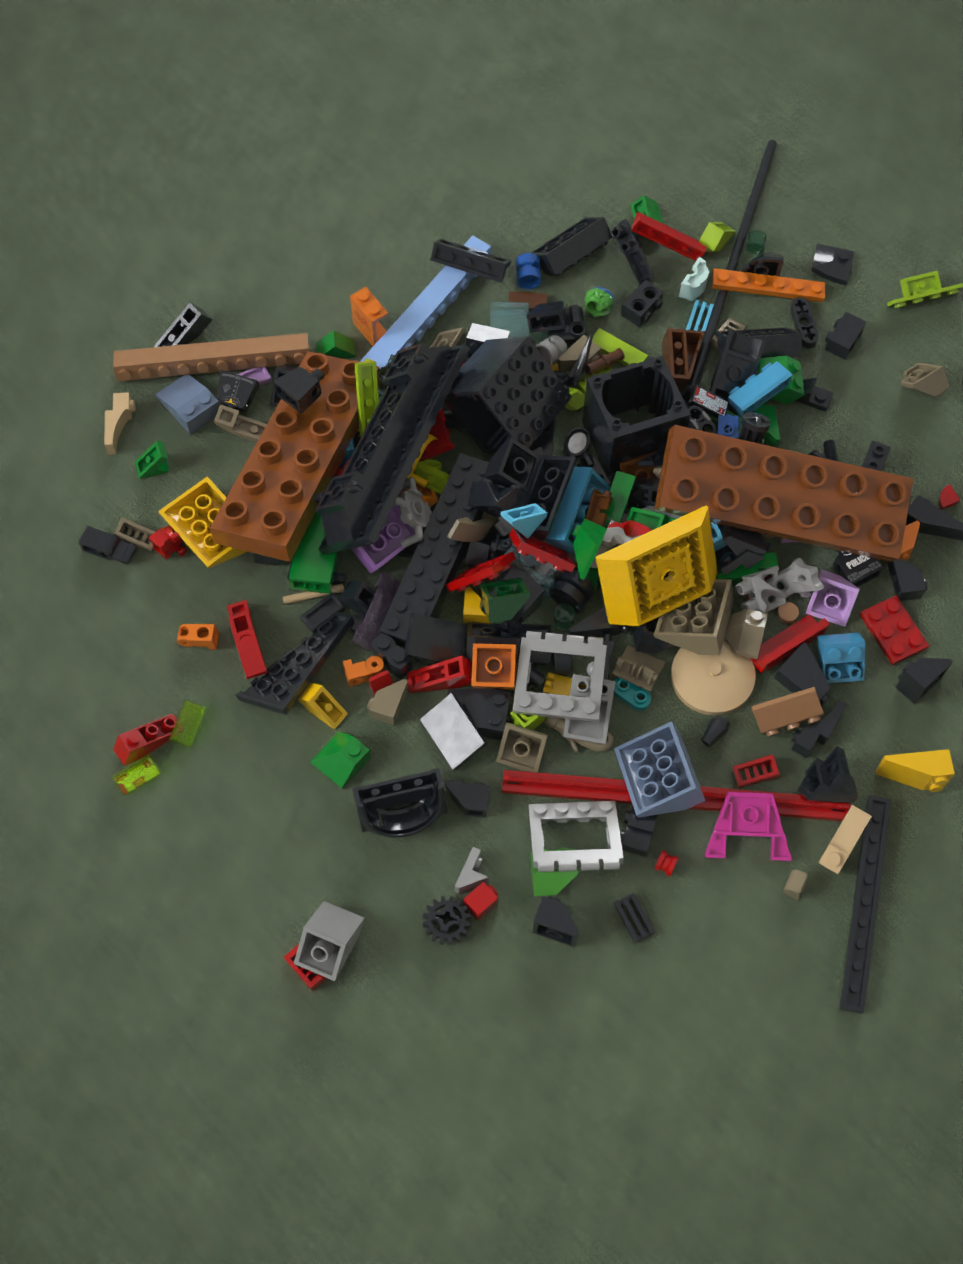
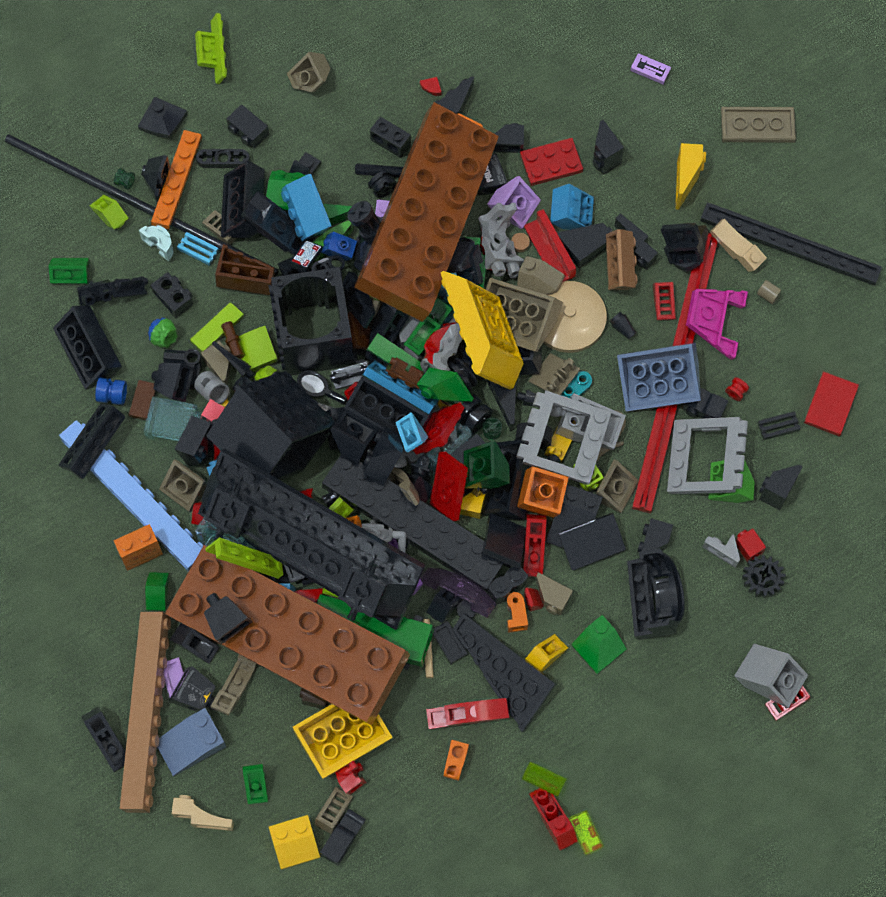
camera: 80 degrees left, 5 degrees up
(99, 504) = (294, 842): none -> yellow slope
(668, 237) = (102, 254): red panel -> none
(674, 974) = (831, 403): none -> red tile

